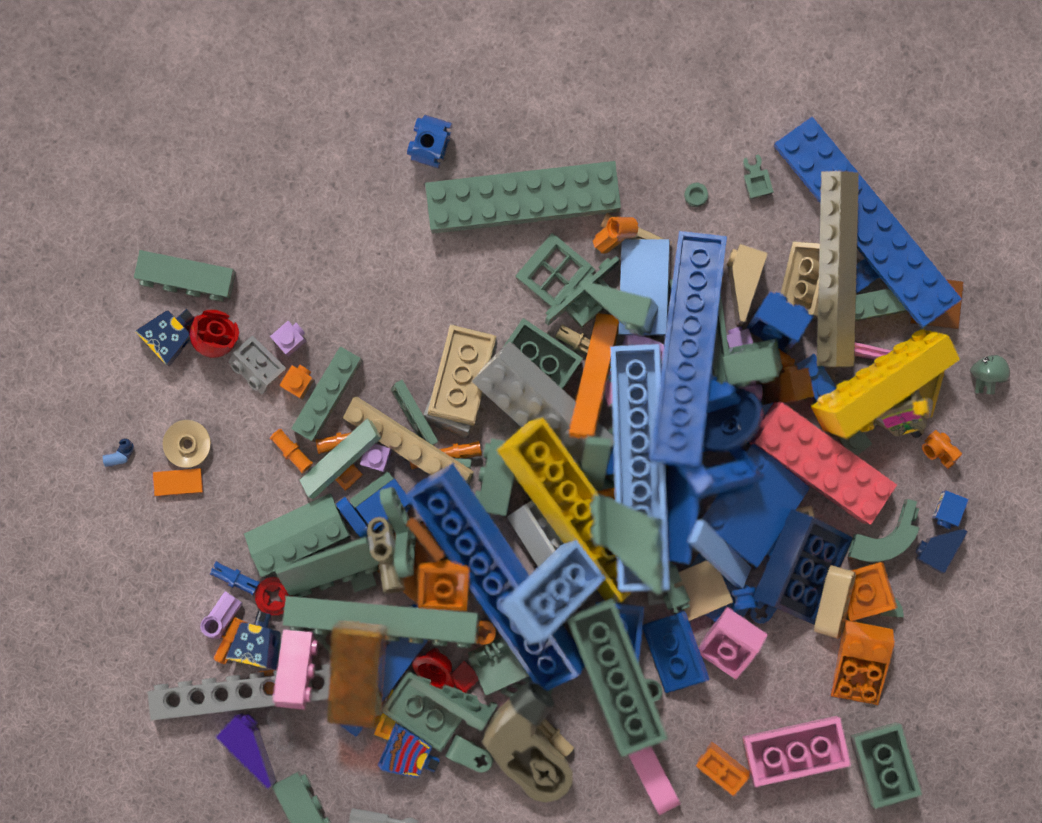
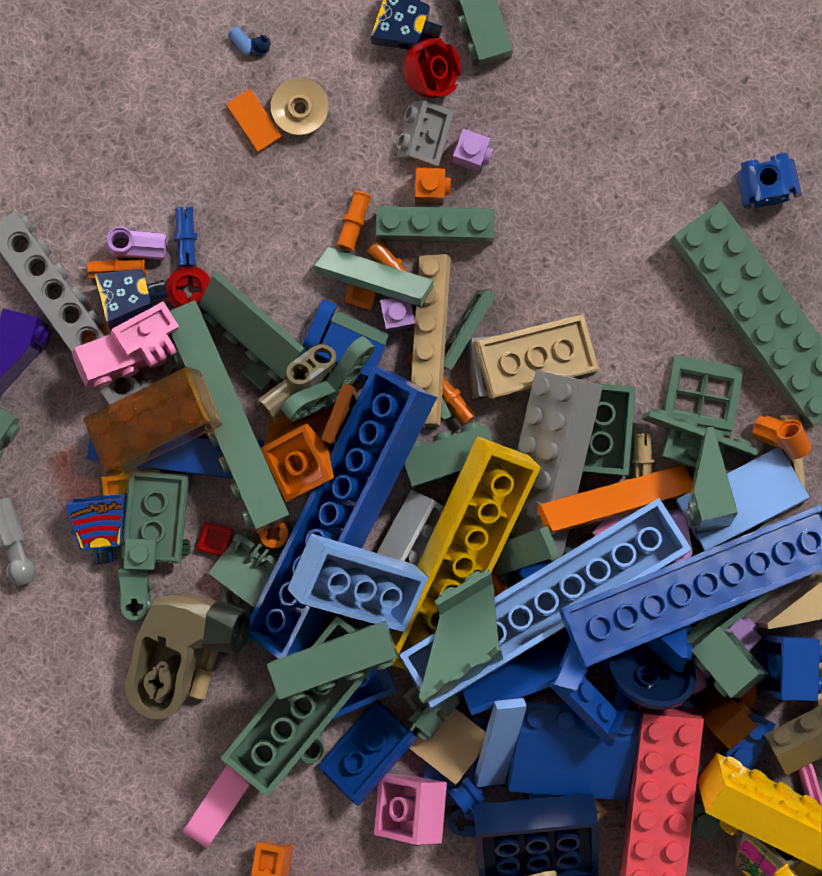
camera: 50 degrees right, 0 degrees up
(292, 643) = (147, 334): none -> bright pink hinge
(296, 535) = (267, 276): sand green slope -> none
(434, 667) = (204, 505): red piece -> none
(445, 736) = (140, 554): none -> sand green plate
(457, 702) = (183, 546): sand green wing -> none
(597, 638) = (331, 660): none -> sand green brick

